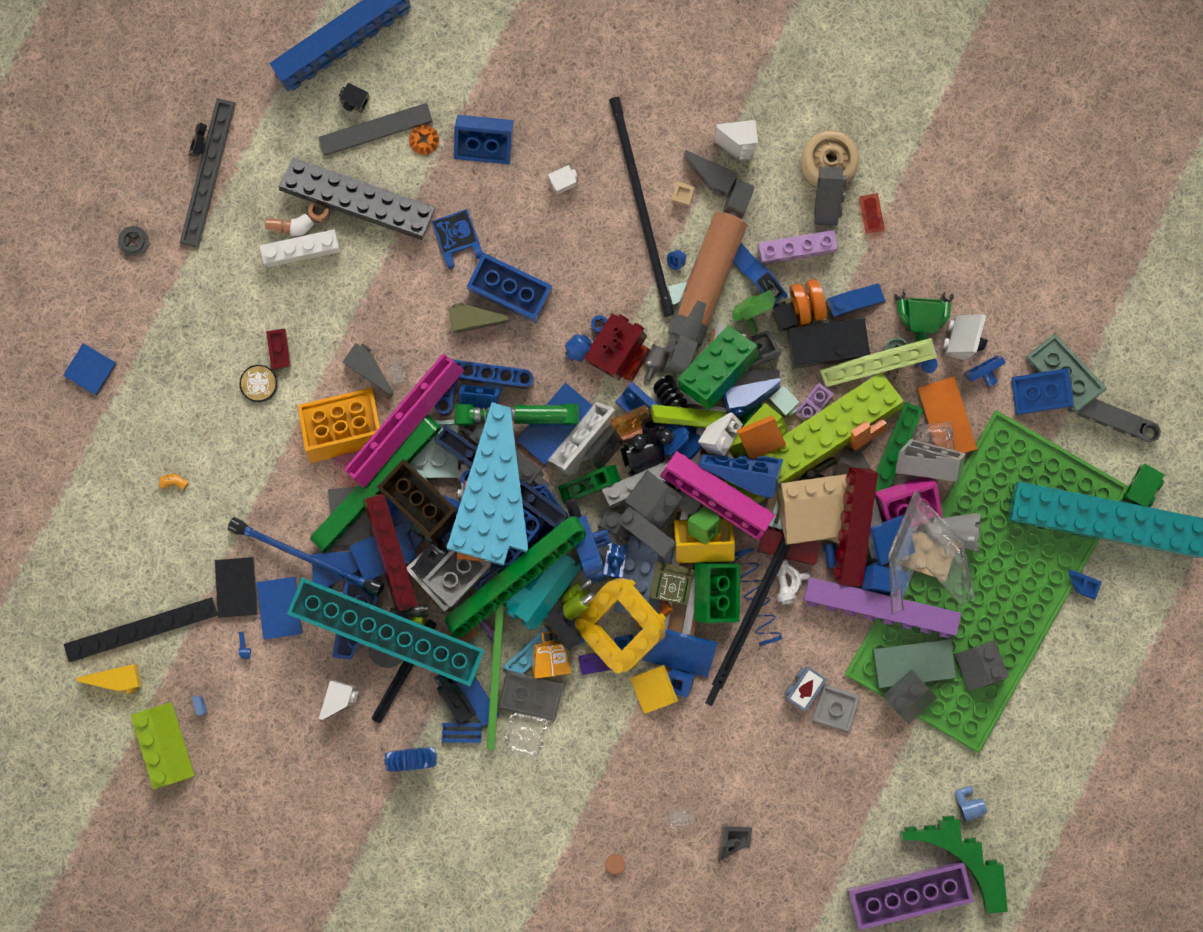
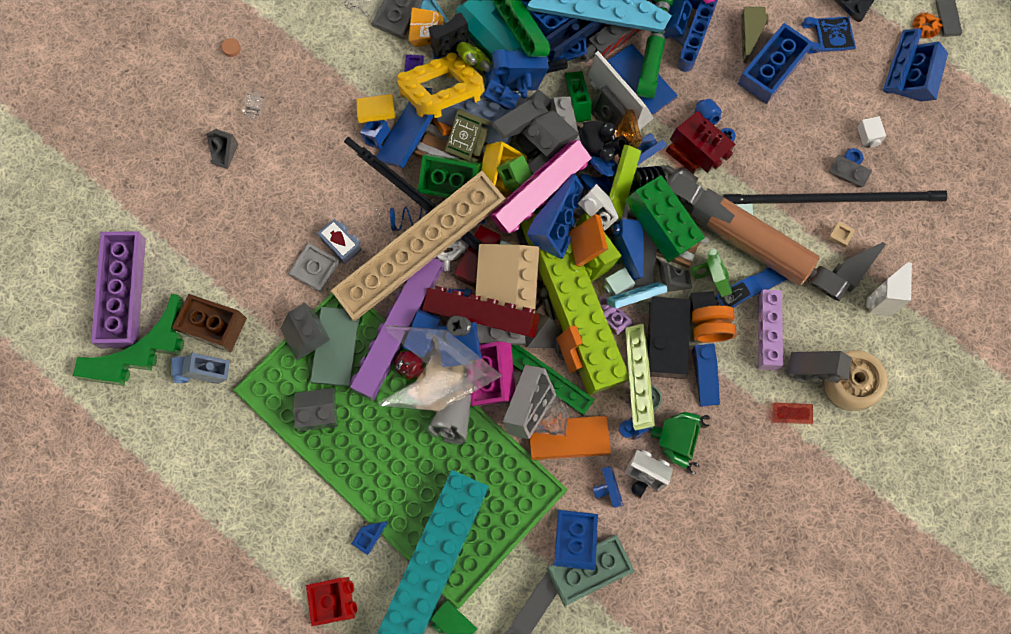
camera: 105 degrees right, 10 degrees down
(474, 159) = (902, 61): none -> blue tile
(592, 193) = (854, 155): none -> blue tile
(609, 194) = (850, 171): none -> flat silver plate
(676, 259) = (777, 216): blue tile -> none
(795, 381) = (636, 294): none -> medium azure tile
(802, 603) = (418, 245): none -> tan plate
(881, 537) = (464, 326): none -> dark grey wheel
(919, 586) = (408, 365): none -> dark red head
(921, 794) = (210, 322): none -> reddish brown slope
(969, 782) = (205, 368): none -> sand blue brick
(1152, 603) = (331, 601): none -> red plate

